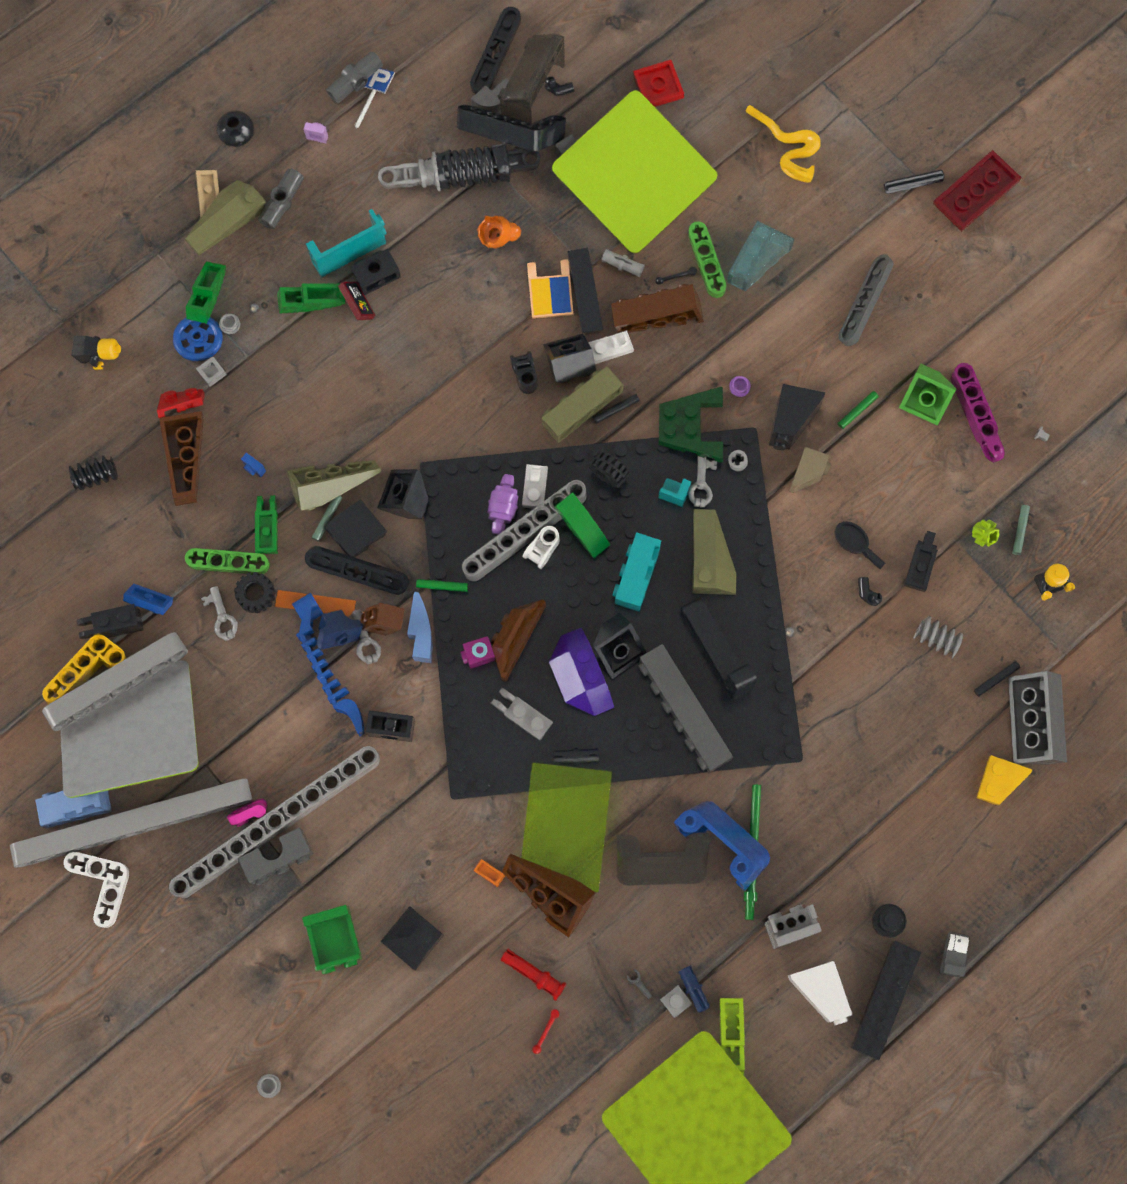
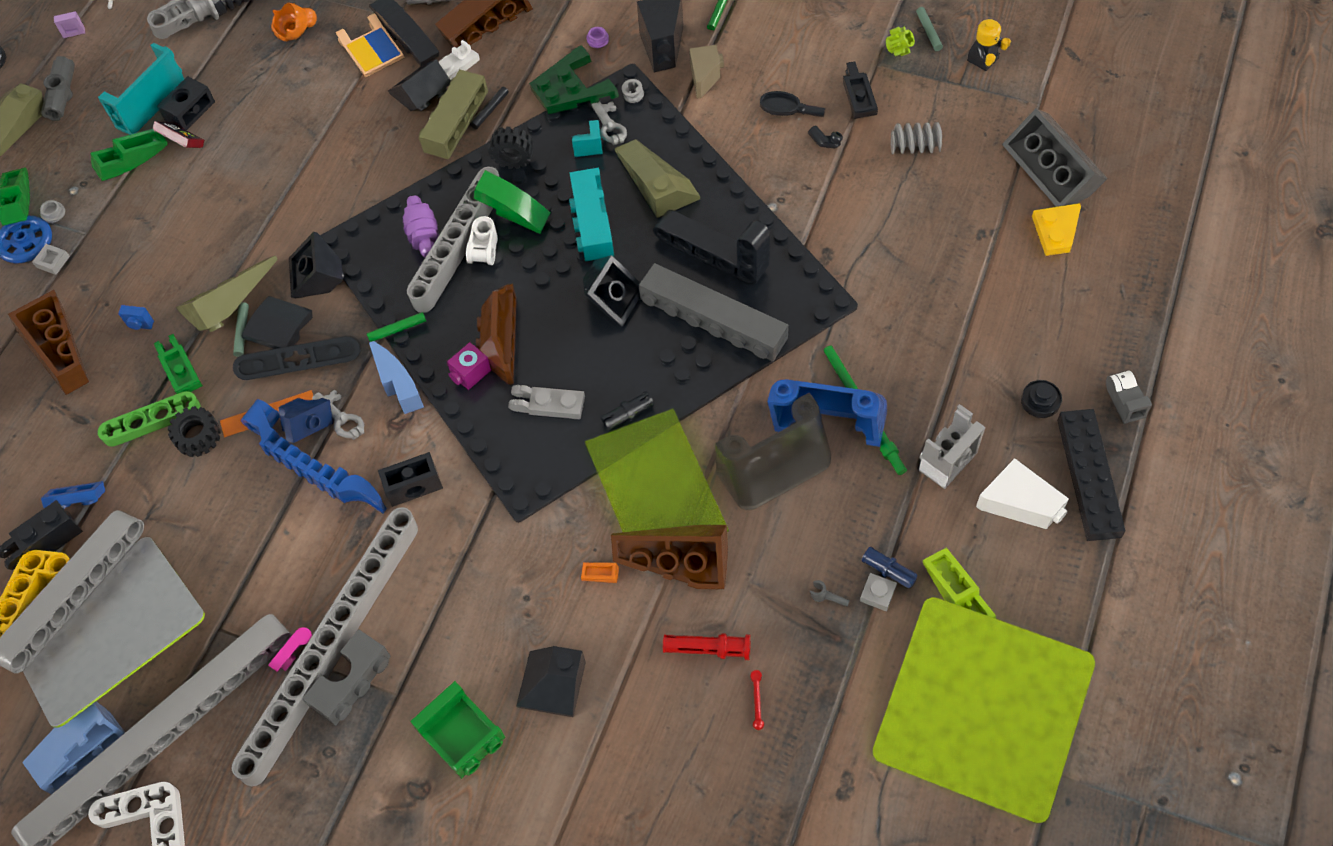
camera: 25 degrees left, 15 degrees down
(180, 400) = (17, 299): red wing -> none
(222, 615) = (168, 472): light grey piece -> none
(382, 619) = (347, 381): reddish brown brick -> none
(524, 369) = (382, 117): black piece -> none
(534, 486) = (443, 198): white plate -> none
(580, 674) = (589, 334): dark purple wedge -> none
(1000, 676) = (992, 150): black piece -> none

